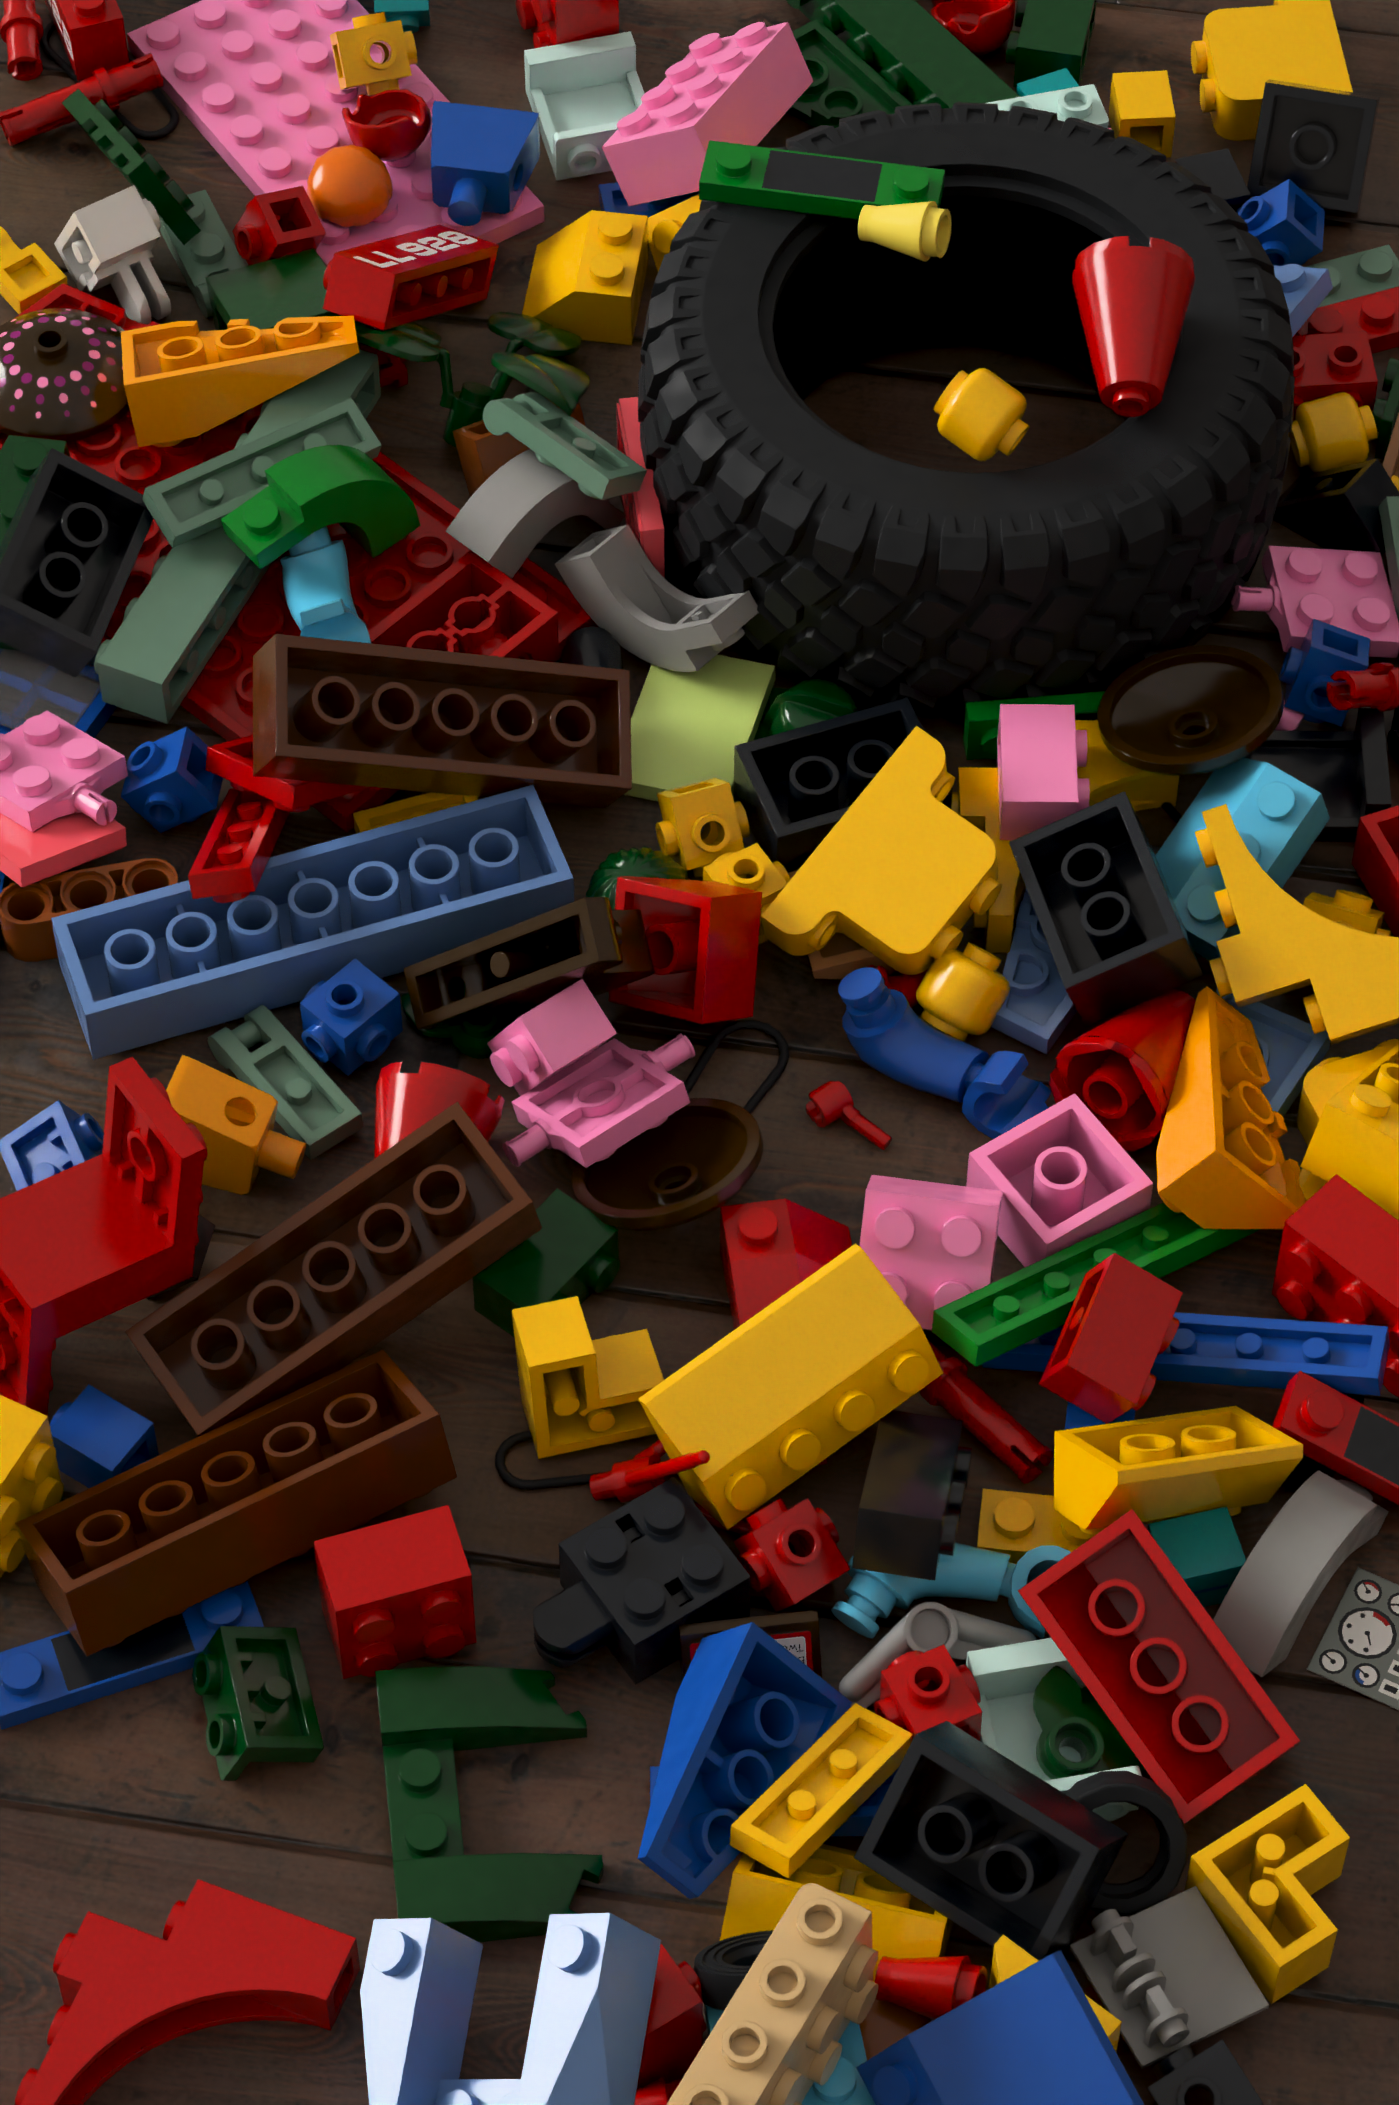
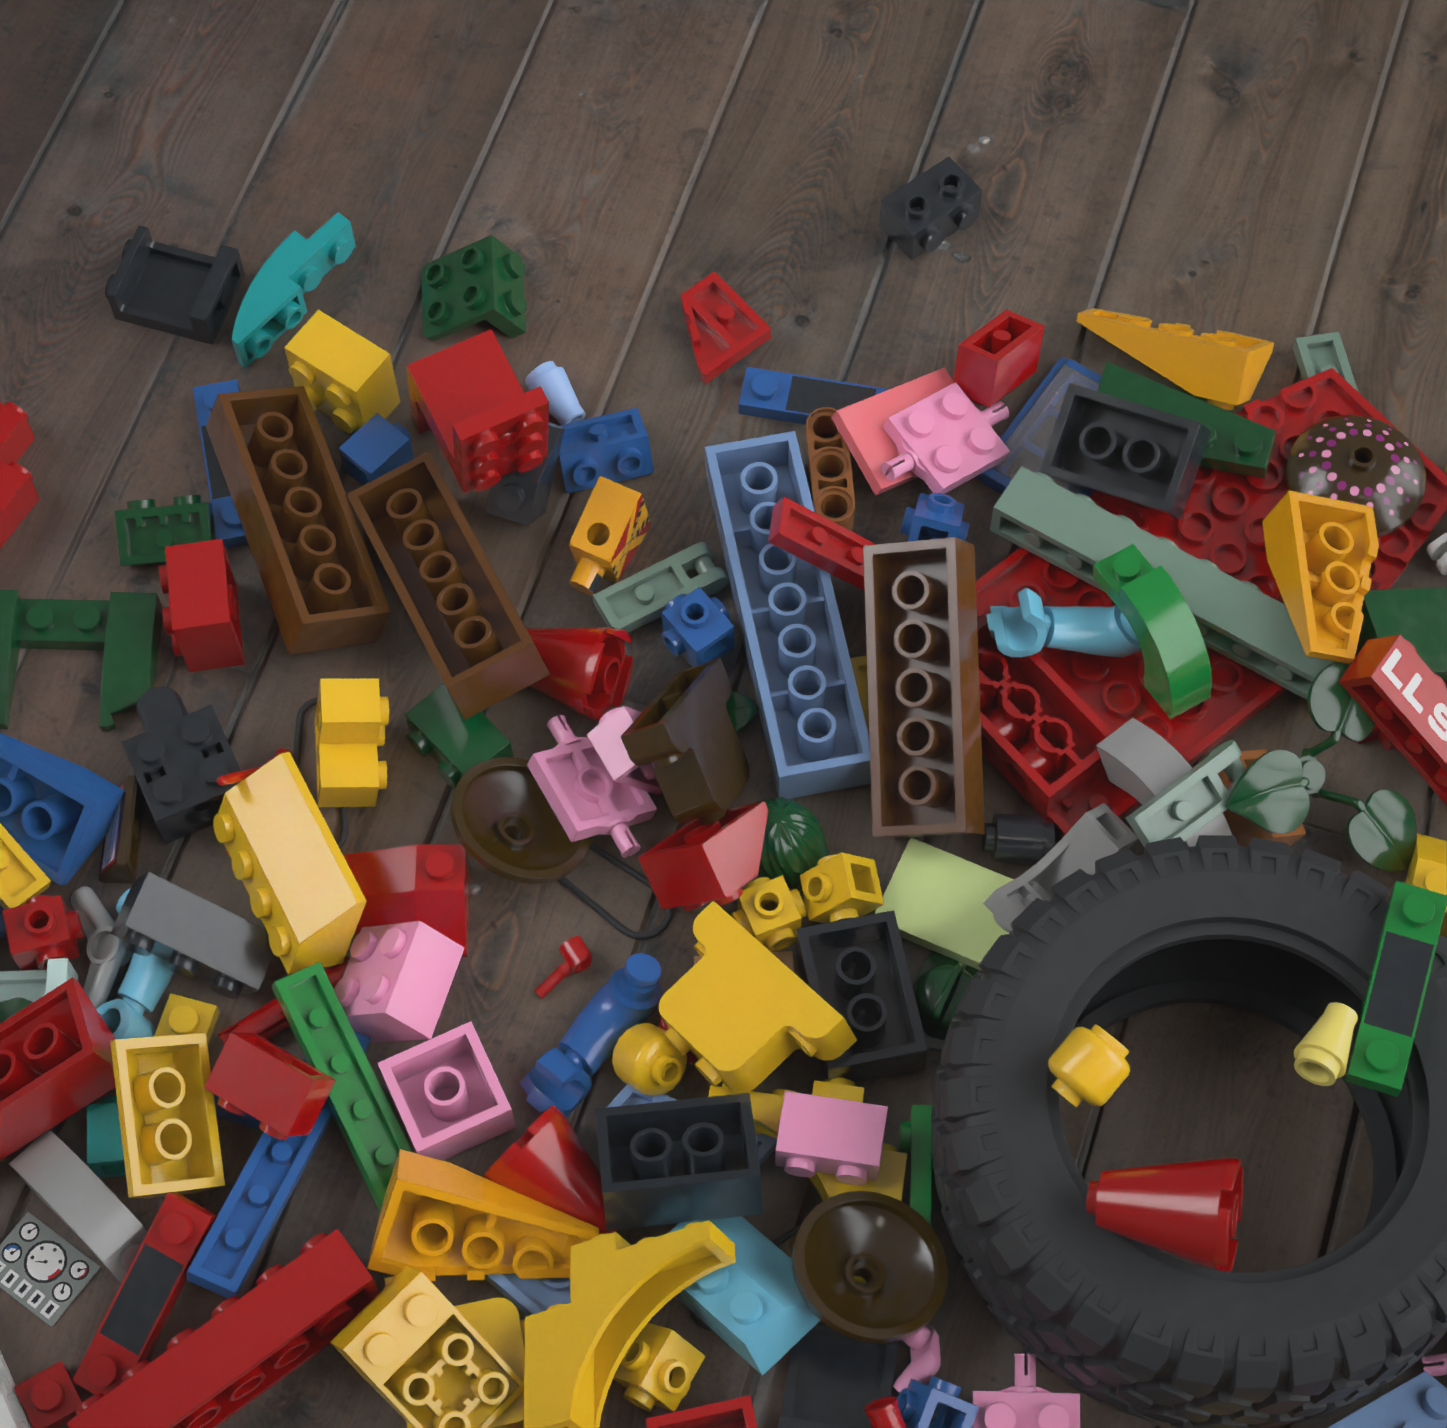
camera: 100 degrees right, 10 degrees up
(204, 494) = (1171, 544): sand green plate -> none
(790, 1552) = (185, 857): red brick -> none

